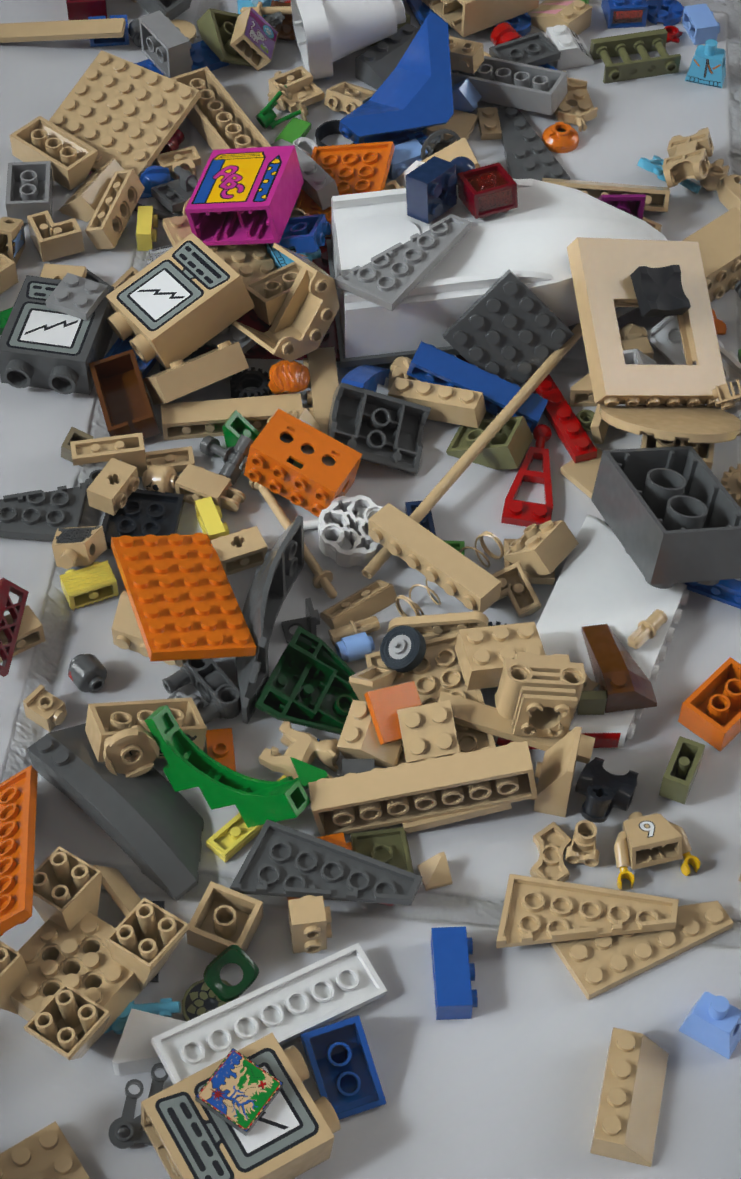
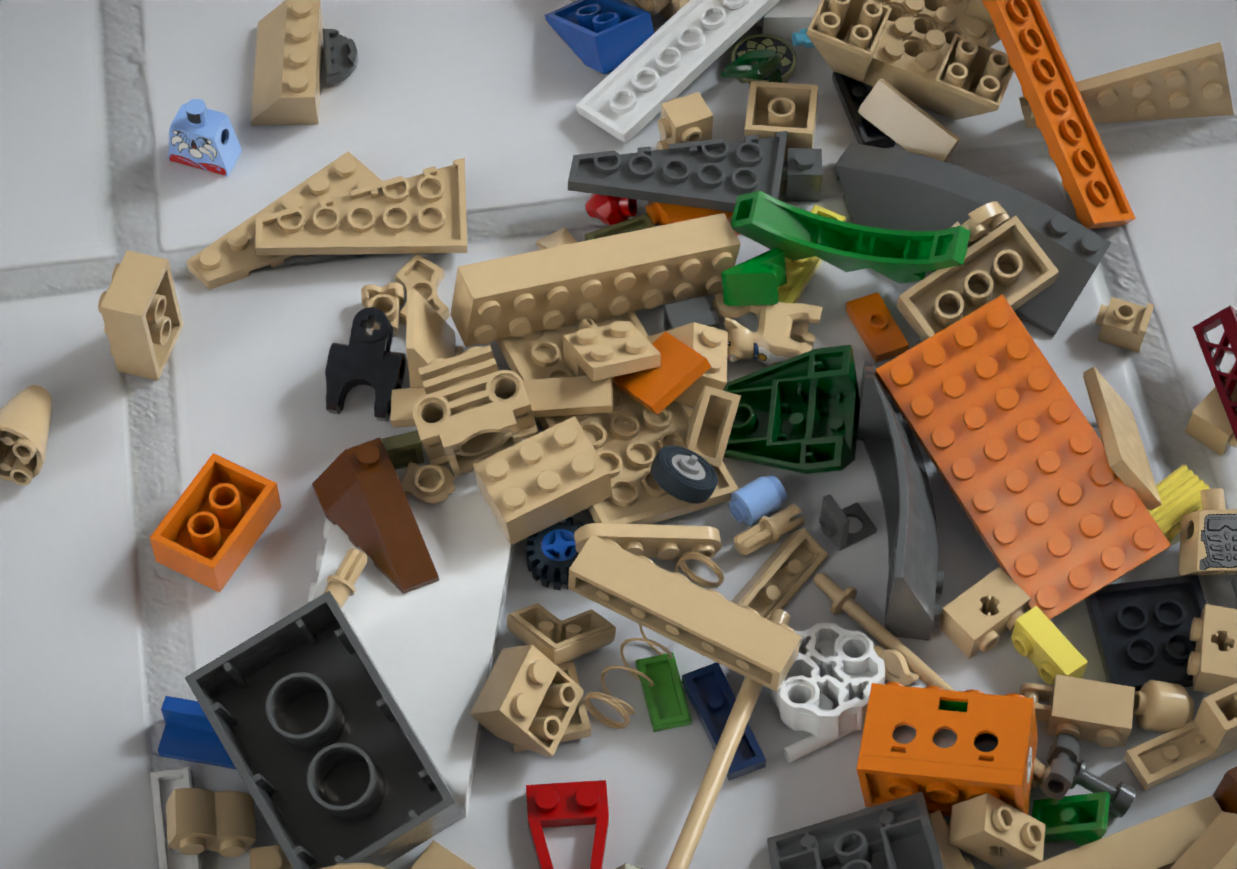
camera: 165 degrees right, 5 degrees up
(87, 672) = (1107, 367): dark grey head -> none
(104, 606) = (1121, 438): none -> tan tile
(223, 870) = (802, 174): none -> dark grey brick
(310, 541) = (896, 666): none -> tan piece
(453, 973) = (508, 137): blue brick -> none
(581, 1100) = (339, 56): none -> dark grey plate
(651, 842) = (298, 317): tan torso -> none
(682, 770) = (267, 415): olive brick -> none

